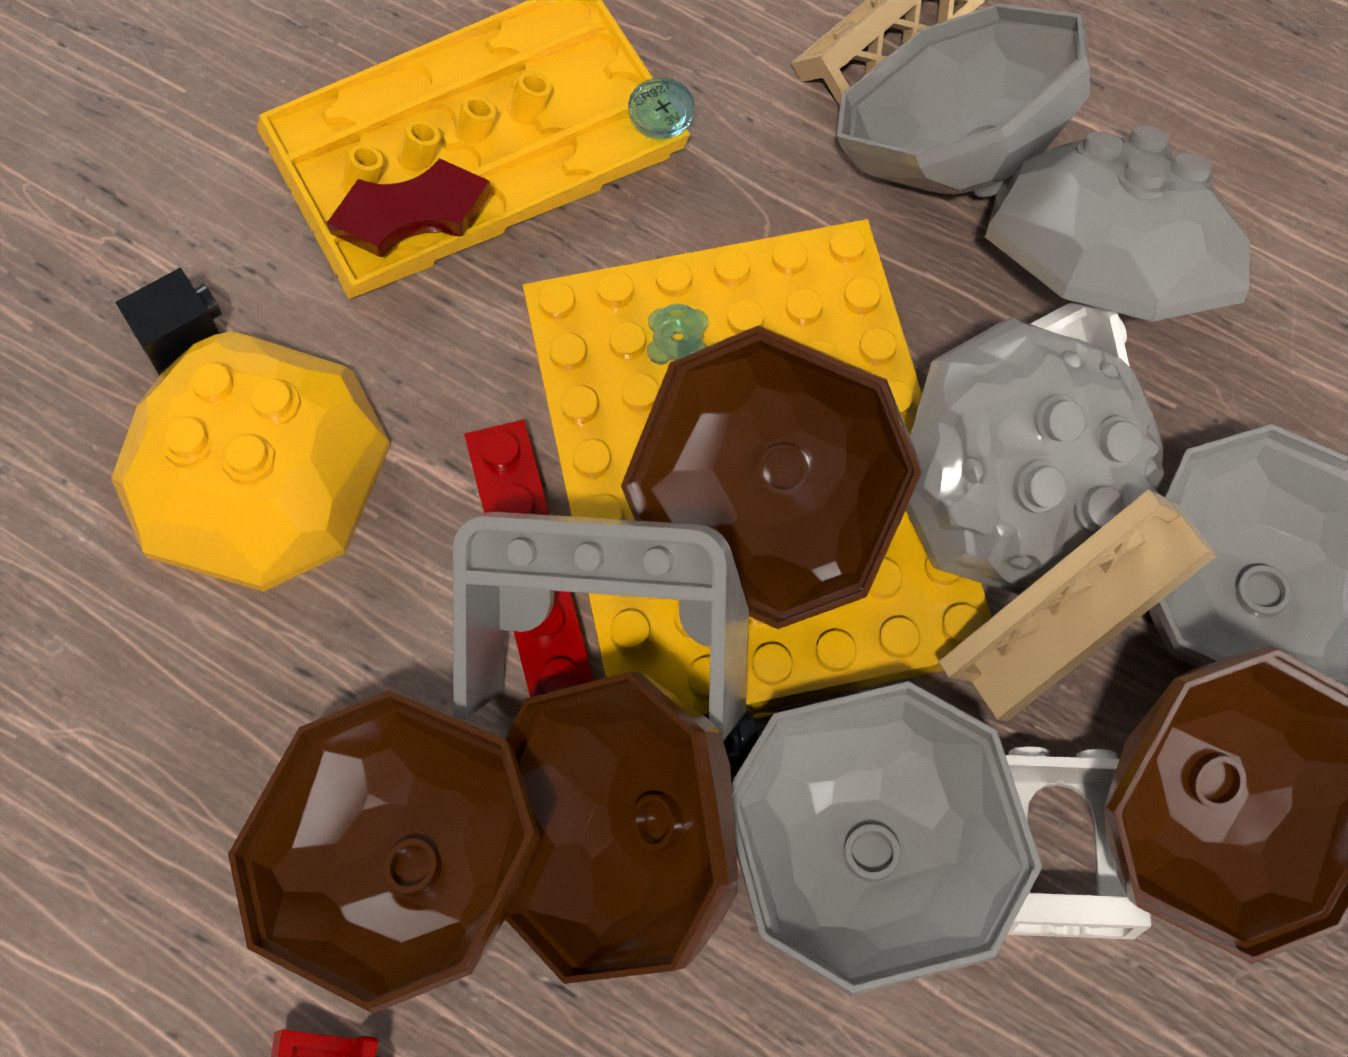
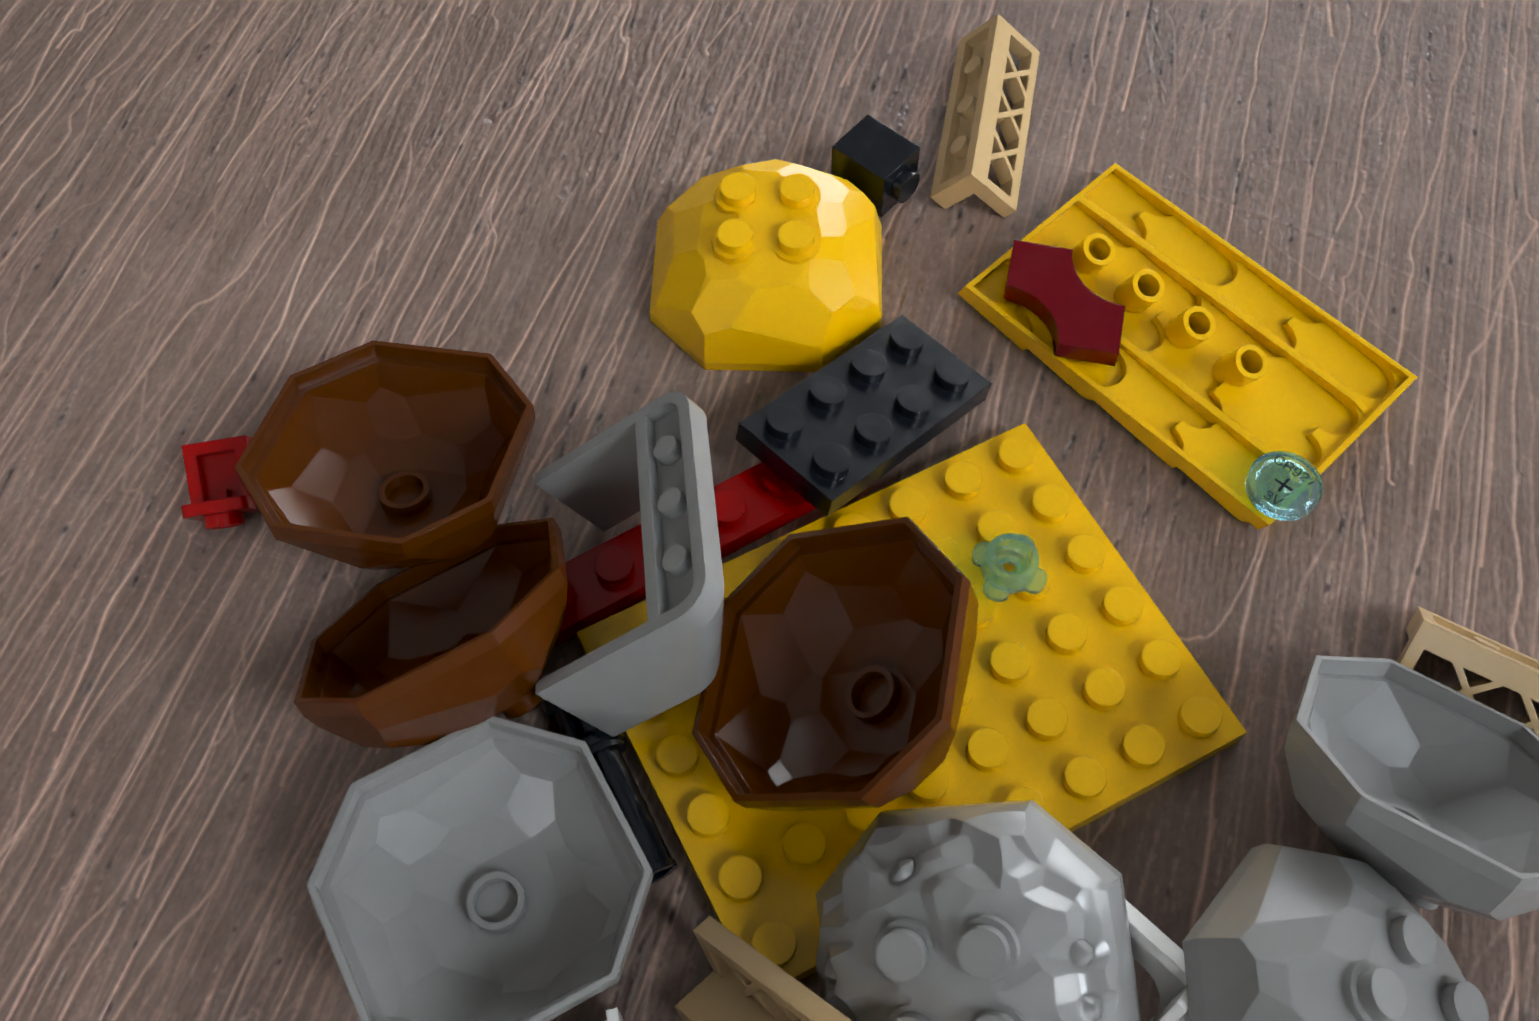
camera: 75 degrees right, 5 degrees down
(146, 207) = (974, 110): none -> tan fence
(471, 411) = (862, 414): none -> black plate

